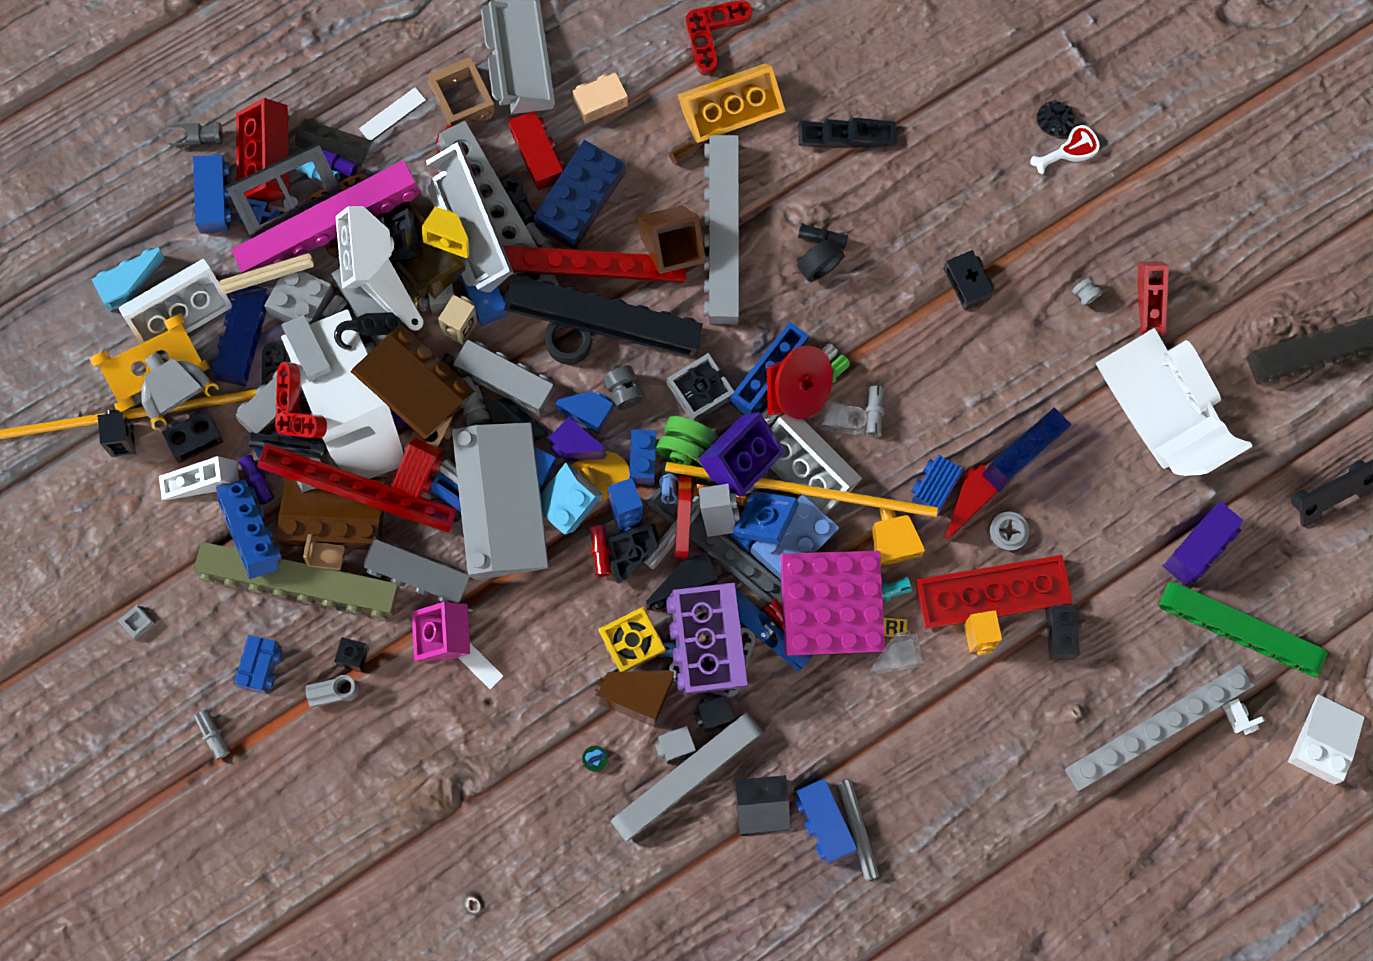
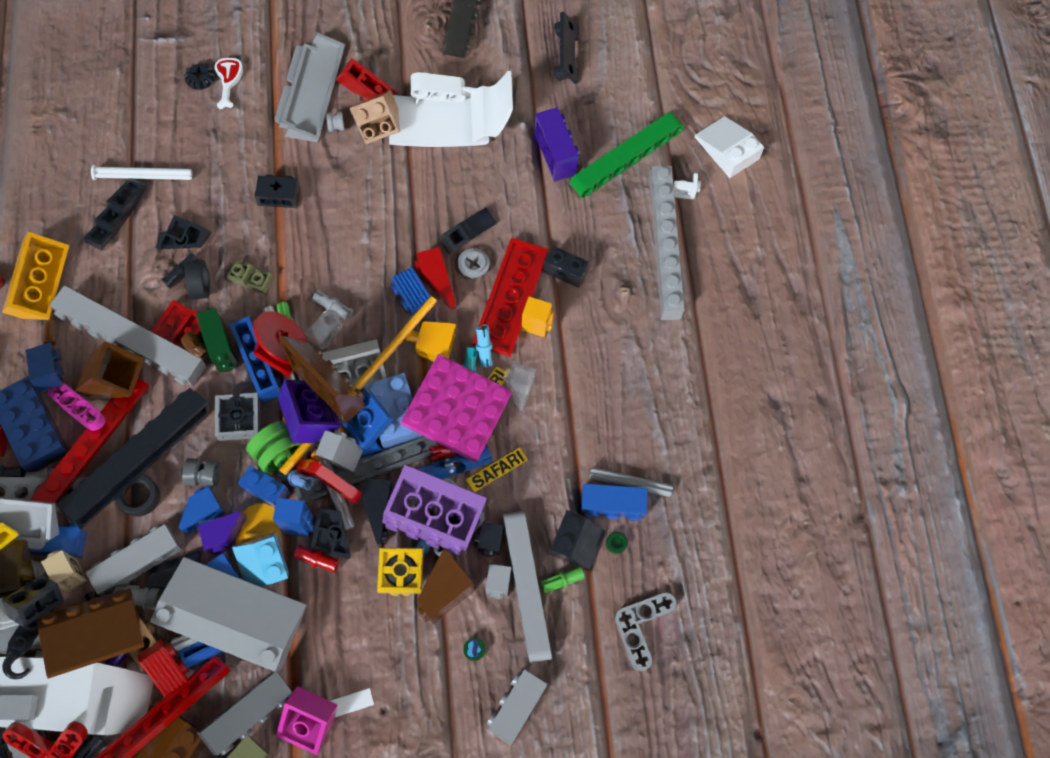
camera: 60 degrees left, 5 degrees down
(413, 311) = (33, 600): none -> black brick
(560, 831) = (516, 707): none -> light grey brick
(624, 227) = (74, 407): none -> dark pink beam
(645, 171) = (44, 367): none -> dark blue brick
(713, 811) = (562, 579): none -> bright green axle
(714, 910) = (637, 619): none -> light grey beam
(750, 301) = (194, 344): none -> reddish brown piece
(762, 272) = (176, 323): none -> red slope
(766, 320) = (217, 340): none -> dark green brick
(781, 450) = (323, 378): none -> reddish brown slope
(783, 848) = (616, 543): none -> dark green tile
(793, 681) = (497, 469): none -> sticker
(857, 309) = (249, 277): none -> olive slope
(863, 214) = (183, 235): none -> black slope
(906, 130) = (140, 173): none -> white axle
(918, 593) = (484, 345): none -> medium azure pin
(1026, 449) = (424, 218): clear blue brick -> none
(1043, 504) = (467, 230): none -> black slope
(1118, 331) = (377, 117): none -> medium nougat slope
(1122, 238) = (312, 81): none -> light grey slope

